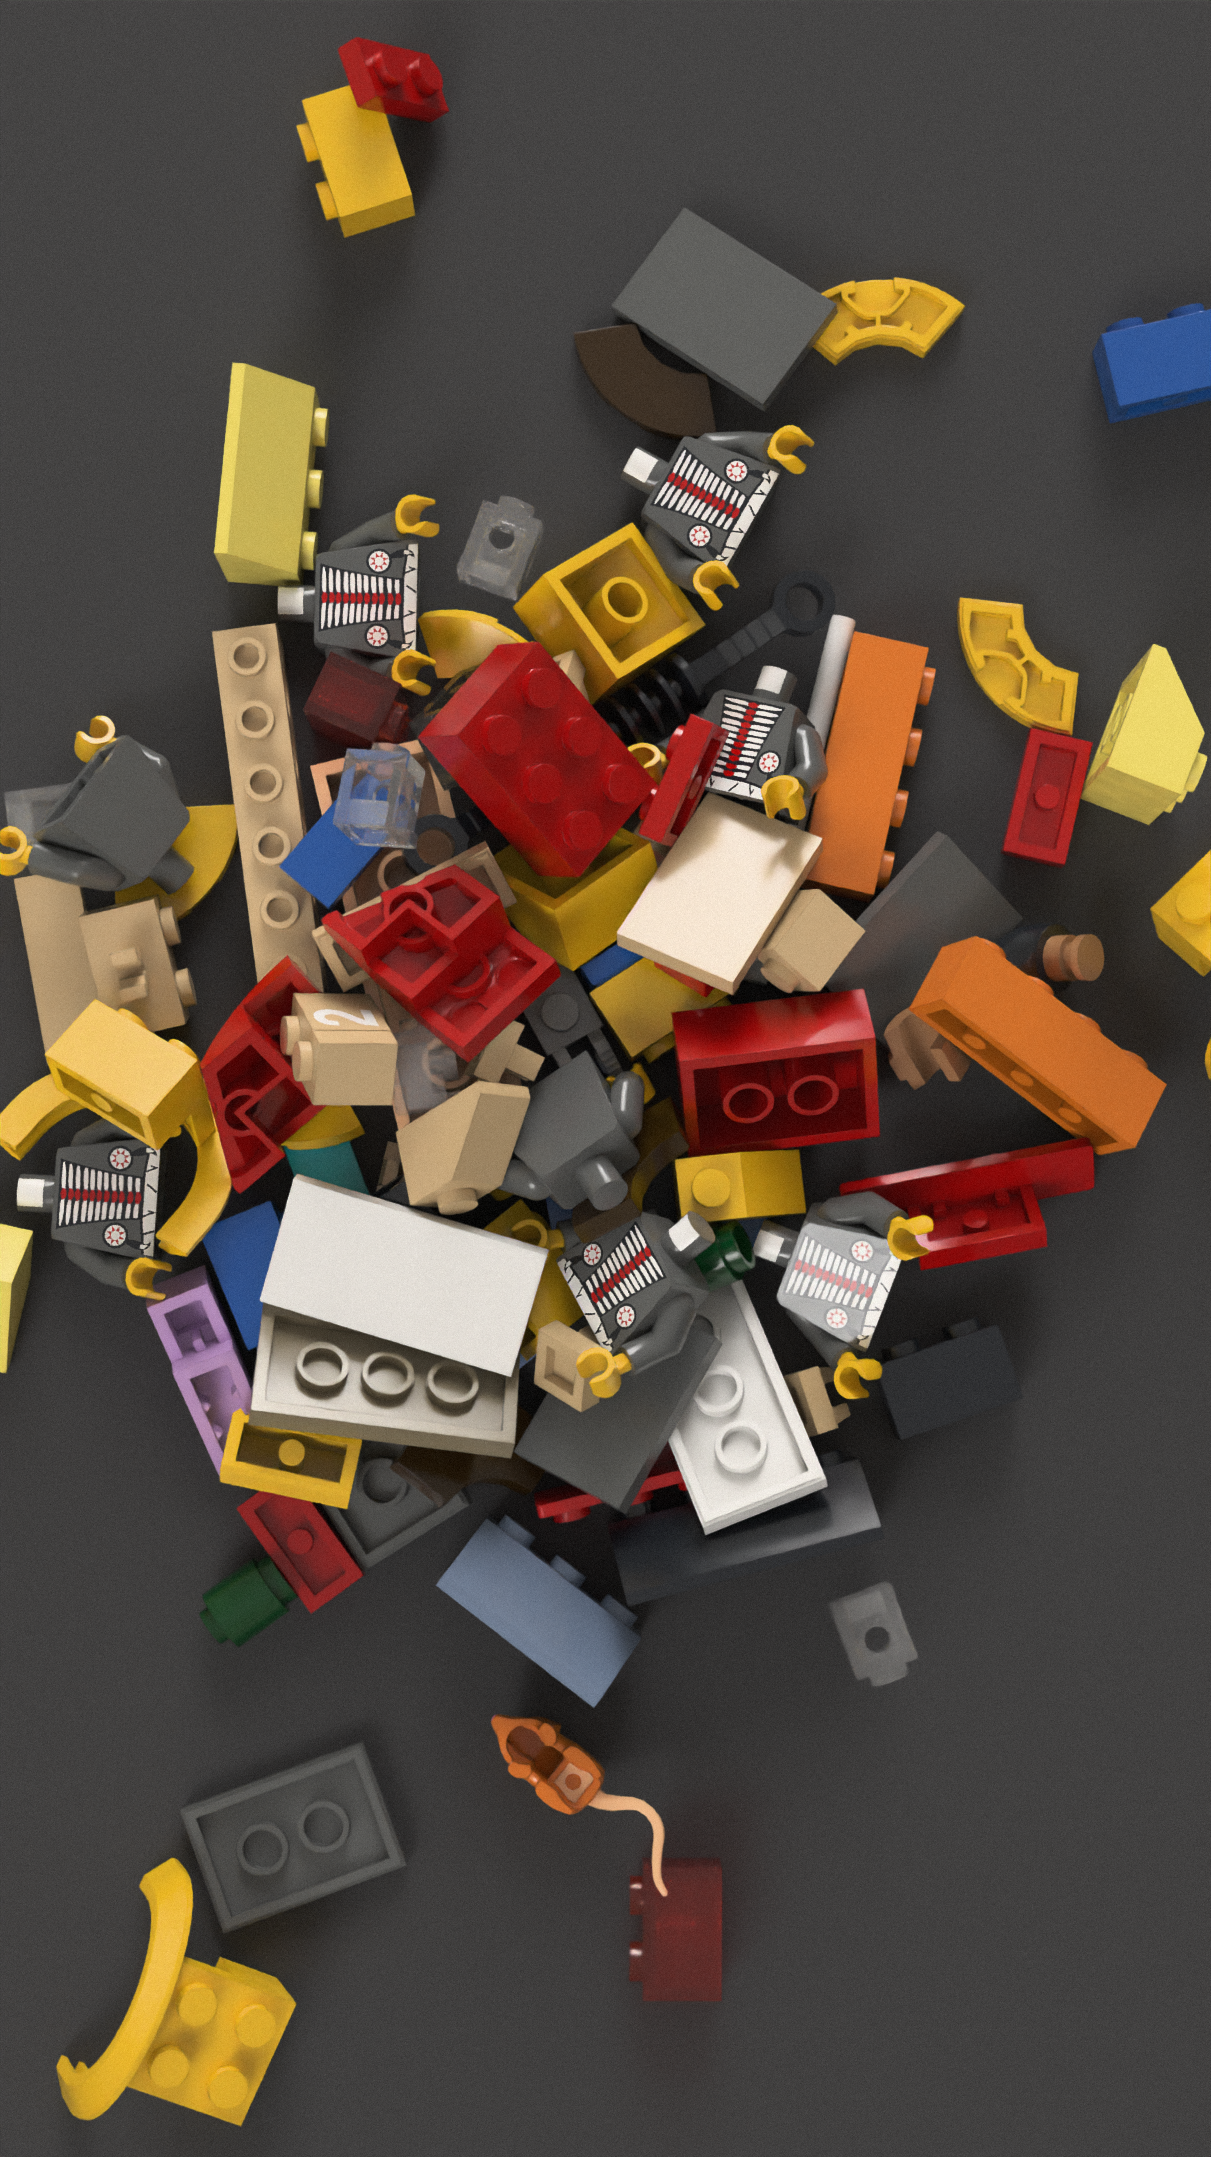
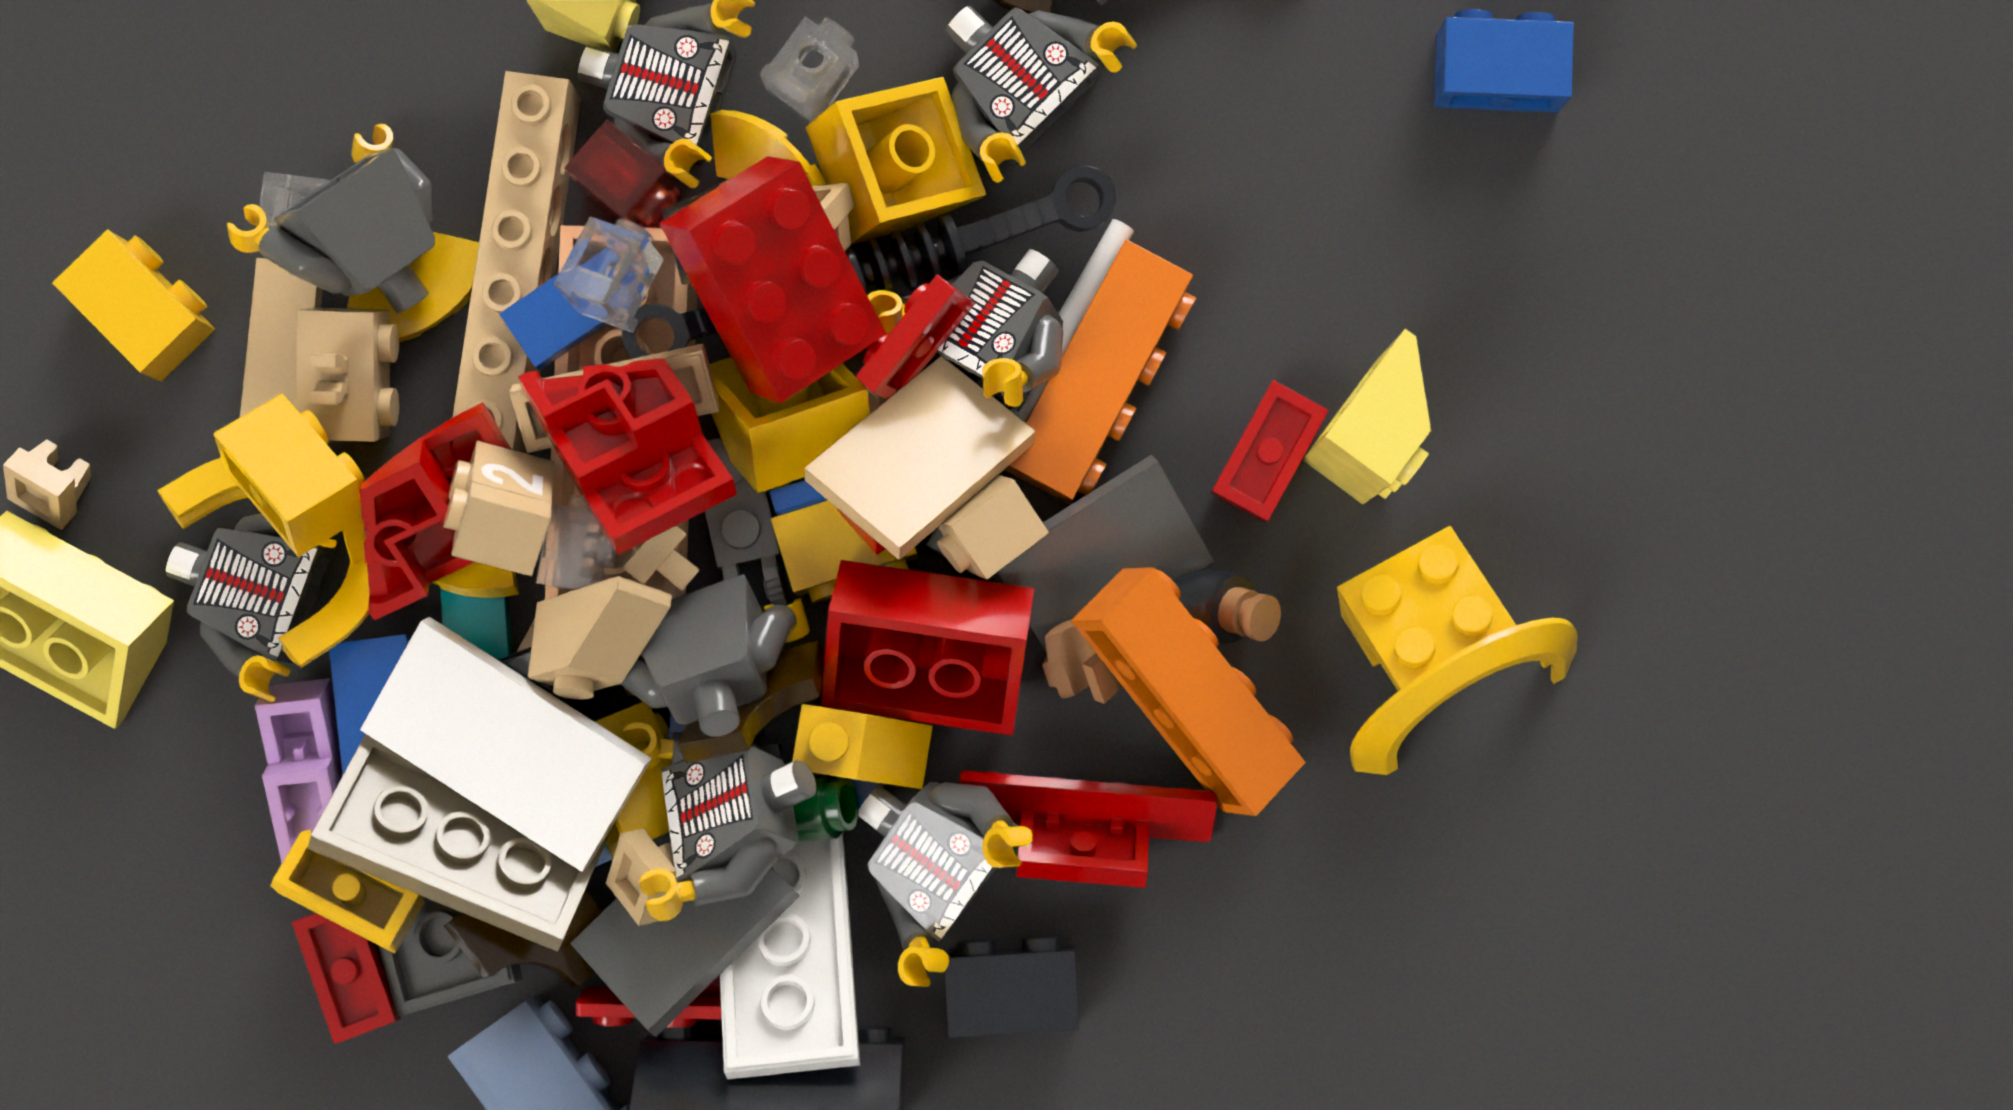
camera: 20 degrees right, 0 degrees up
(247, 1601) = (275, 1015): dark green brick -> none
(812, 1400) = (873, 974): tan tile -> none
(1012, 669) = (1272, 319): yellow tile -> none

